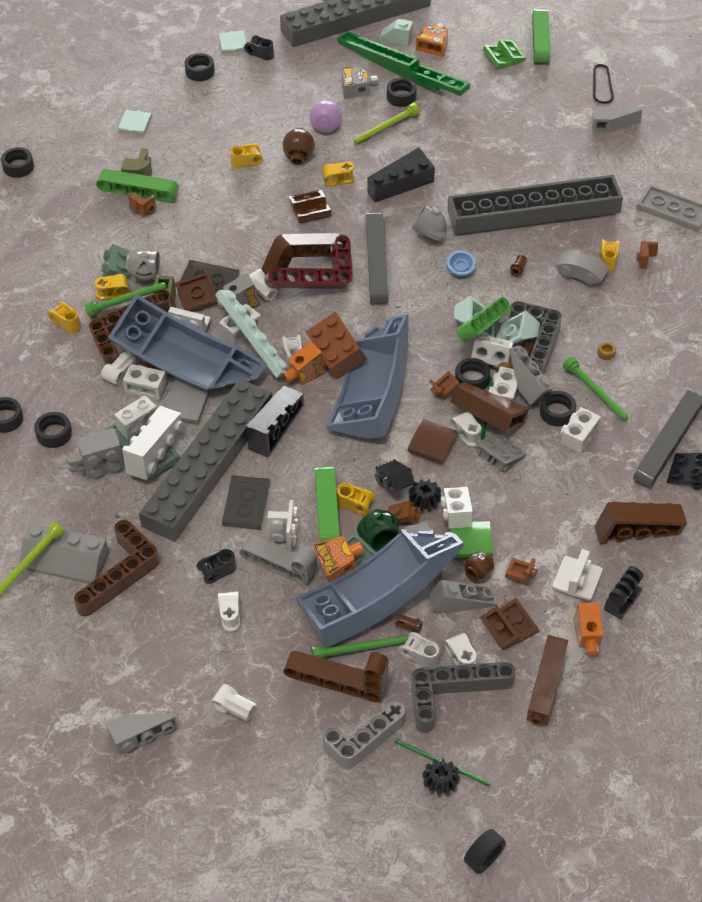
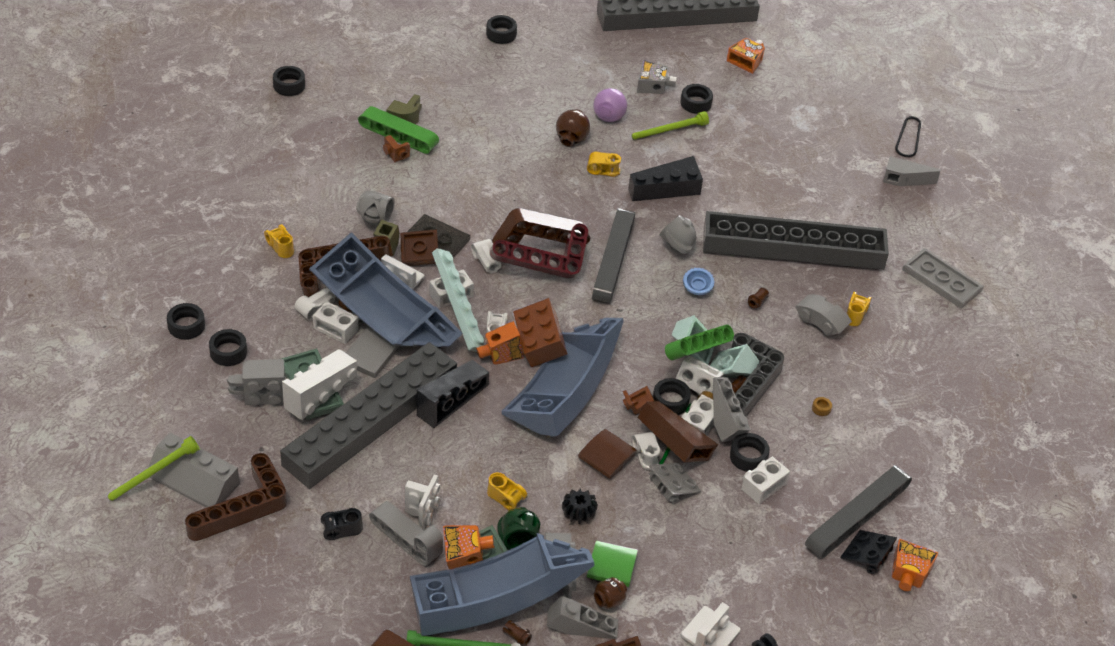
camera: 10 degrees right, 5 degrees down
(92, 309) = (311, 238): bright green piece -> none
(112, 285) = (338, 223): yellow piece -> none
(115, 261) = (348, 199): sand green bracket -> none
(134, 121) = (419, 68): light aqua piece -> none
(134, 416) = (310, 352): white brick -> none
(229, 610) = (338, 572): white piece -> none
(232, 41) = (544, 12): light aqua piece -> none
(244, 155) = (514, 125): yellow piece -> none
(244, 290) = (465, 257): light grey torso -> none
(246, 502) = (394, 467): clear smoke tile -> none
(260, 47) = (568, 24): black piece -> none
(310, 206) = (564, 189): reddish brown slope -> none
(327, 503) = (475, 488): bright green beam -> none
(394, 476) = (553, 478): black brick -> none
(398, 32) = (713, 39): light aqua slope -> none
(403, 64) = (708, 72): green slope -> none
(405, 512) = (552, 518): dark orange bracket -> none
(457, 507) = (607, 527): white brick -> none
(504, 54) = (816, 84): bright green slope -> none
(521, 571) = (653, 609): dark orange bracket -> none
(541, 36) = (860, 75): bright green beam -> none
(572, 365) = (779, 412): bright green piece -> none
(639, 520) = (795, 589): reddish brown wedge -> none
(646, 249) = (899, 313): dark orange bracket -> none

